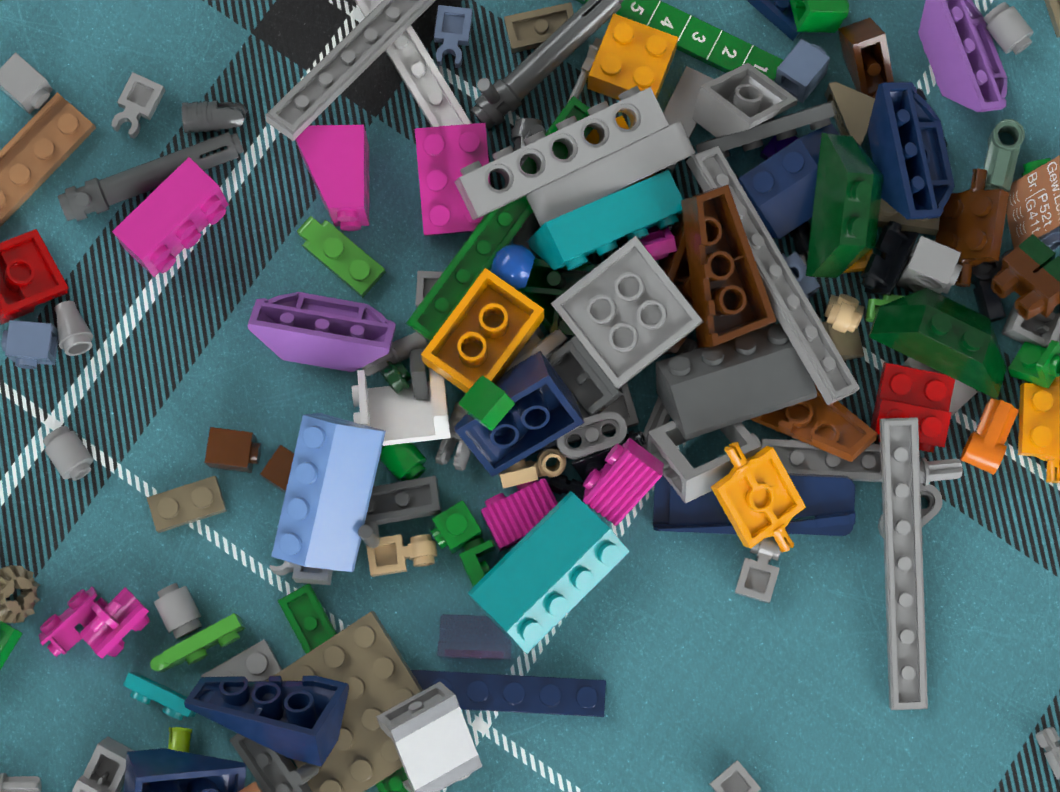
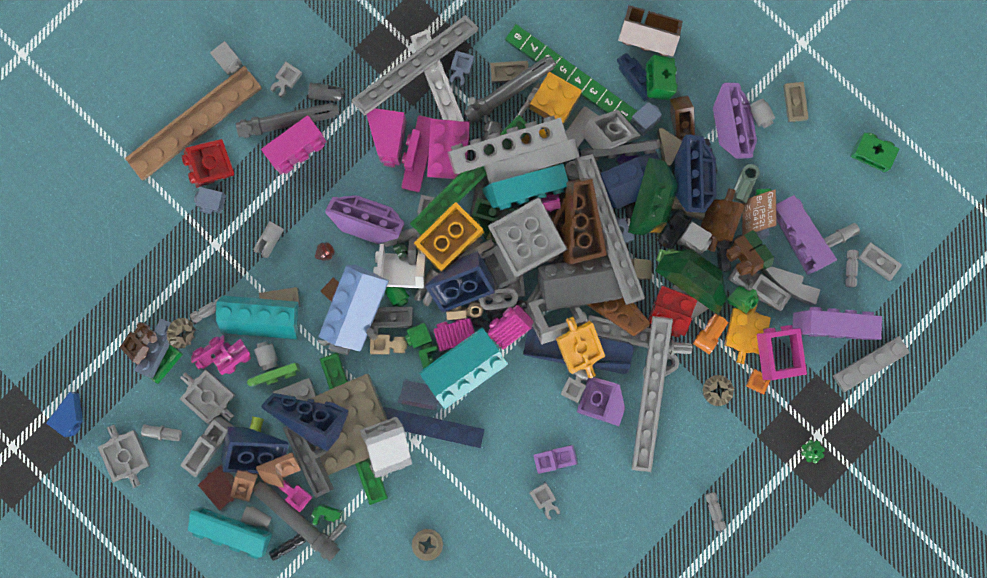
camera: 10 degrees right, 5 degrees up
(57, 544) = (204, 312): none -> light grey axle
(68, 453) = (221, 262): light grey brick -> none
(72, 330) = (233, 198): light grey cone -> none
(79, 705) = (207, 397): none -> light grey plate
(146, 689) = (243, 394): teal plate -> none
(149, 397) = (268, 239): none -> light grey hinge
(151, 542) = (257, 317): none -> teal slope
(232, 450) = (307, 275): reddish brown brick -> none
(256, 403) = (324, 251): none -> clear red plate
(340, 255) = (381, 179): bright green hinge -> none
(398, 200) = (417, 155): none -> dark pink bracket
(486, 403) = (444, 275): green piece -> none
(513, 265) = (471, 202): blue piece -> none
(686, 182) = (571, 171): none -> white plate
(746, 714) = (555, 459): none -> medium lavender slope
(814, 592) = (602, 401): none -> medium lavender slope
(843, 313) = (644, 255): tan plate -> none
(1014, 552) = (711, 384): none -> dark tan gear

